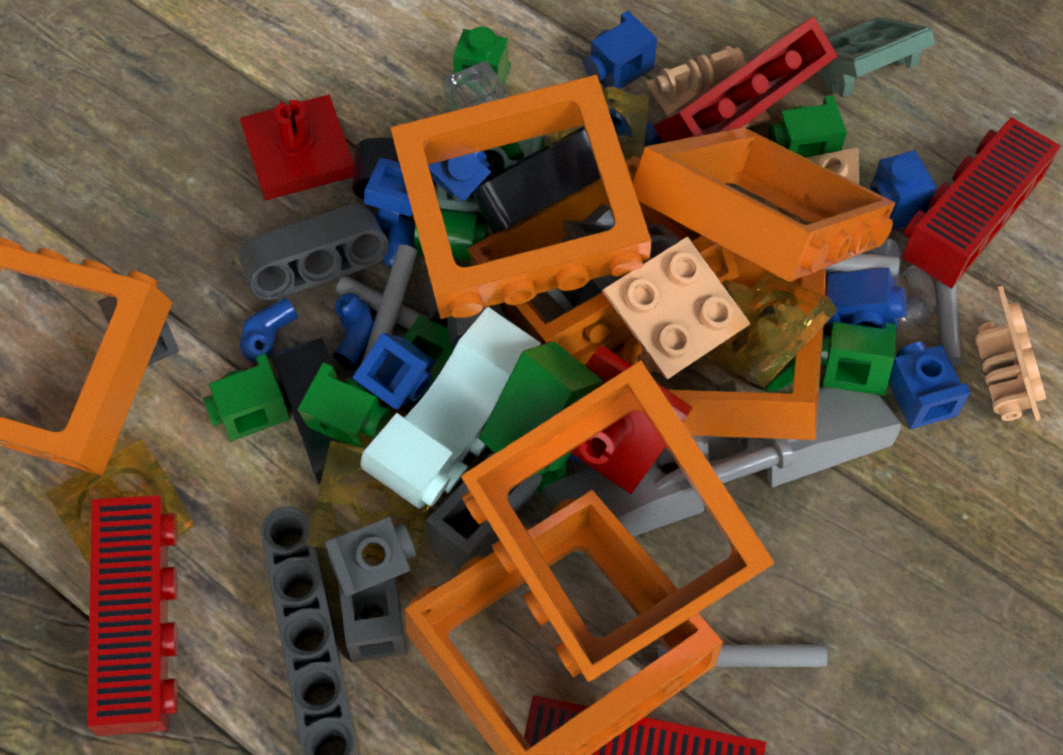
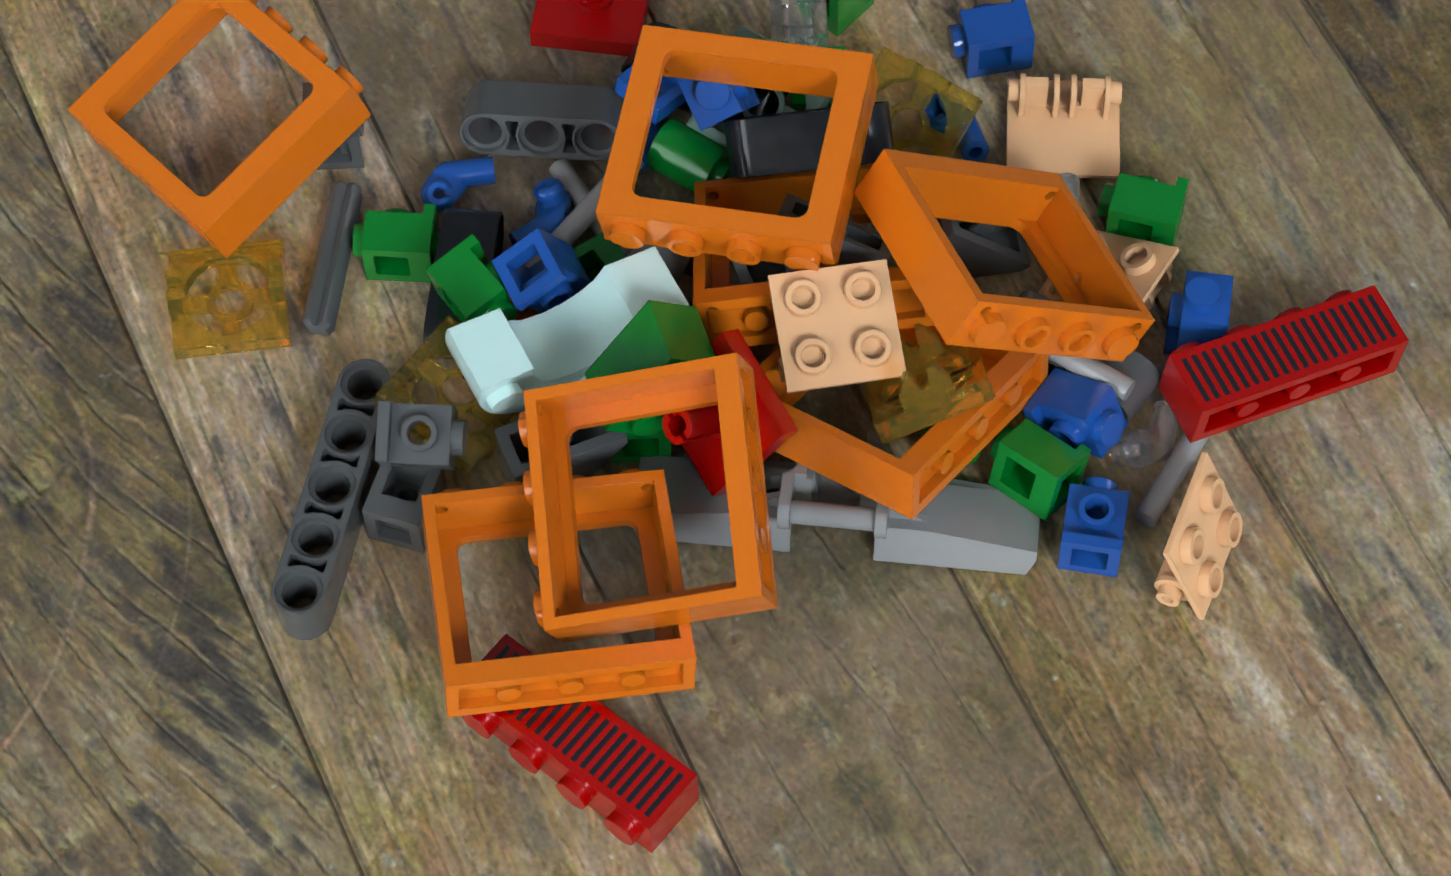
camera: 30 degrees right, 0 degrees up
(130, 616) = (185, 398): red brick -> none
(194, 437) = (332, 258): none -> dark grey axle
(751, 84) = (1100, 131): red brick -> none
(768, 655) = (758, 709): light grey bar -> none
(881, 42) = (1275, 143): sand green piece -> none

